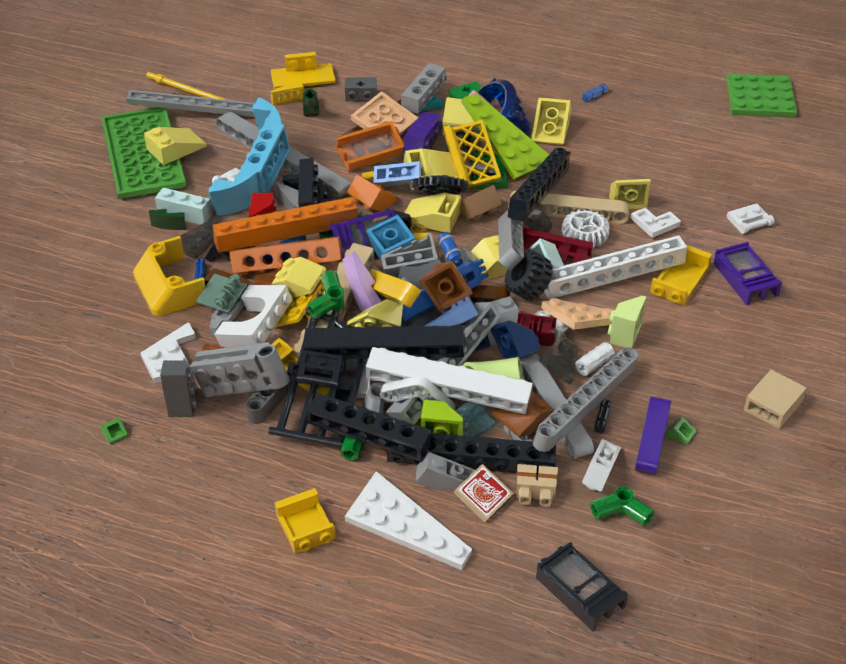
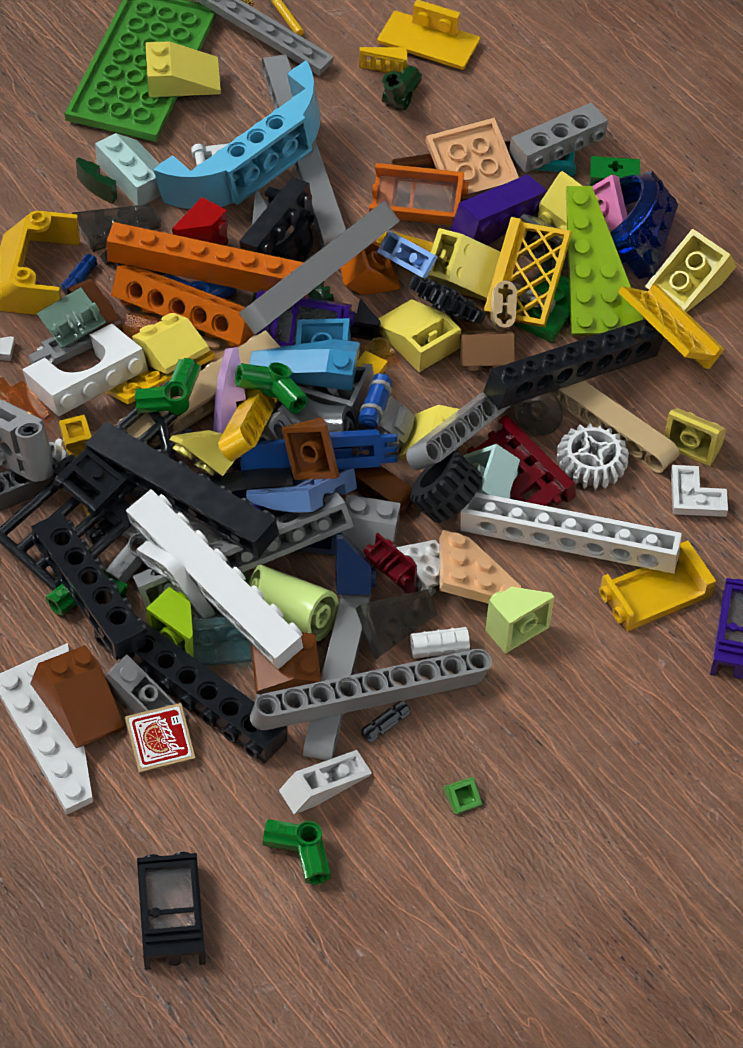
camera: 30 degrees right, 10 degrees up
(359, 195) = (318, 267): none -> light grey beam
(360, 88) = (483, 97): dark grey brick -> none
(389, 262) = (274, 382): none -> green piece
(399, 245) = (315, 363): none -> dark azure wedge
(414, 493) = (77, 696): none -> dark orange slope
(472, 176) = (509, 305): none -> tan beam
(541, 489) = (227, 760): tan hips -> none
(578, 149) = (674, 324): none -> yellow fence
(653, 435) = (413, 779): dark purple beam -> none
(775, 399) = (614, 819): tan brick -> none

